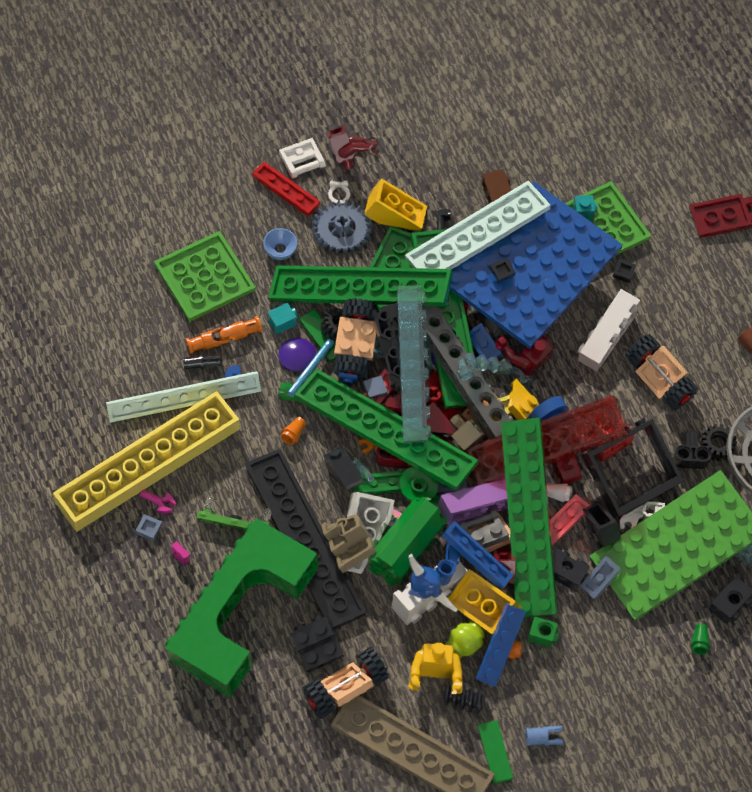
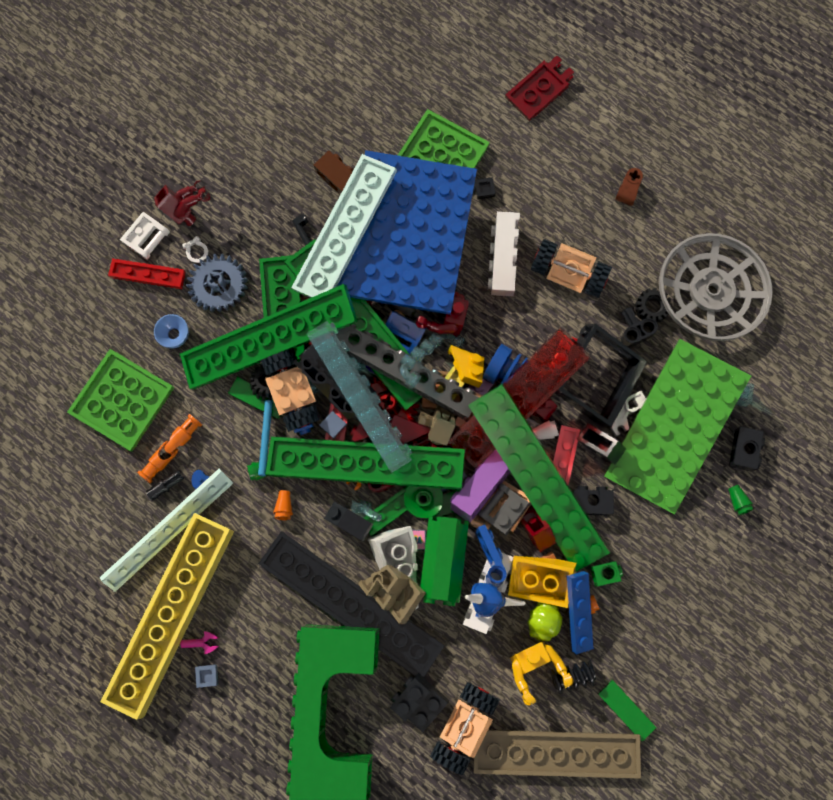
camera: 20 degrees left, 15 degrees up
(180, 553) = (249, 686): dark pink tile -> none
(234, 520) = (279, 625): bright green piece -> none
(282, 318) = (213, 402): teal brick -> none
(296, 354) = (245, 429): dark purple dish -> none
(394, 207) = (254, 239): yellow slope -> none
(477, 555) = (516, 544): blue plate -> none
(502, 270) = (387, 255): black plate -> none
(539, 736) = (657, 674): medium blue hinge -> none
(585, 206) = (420, 148): teal brick -> none
(601, 577) = (627, 493): sand blue plate -> none

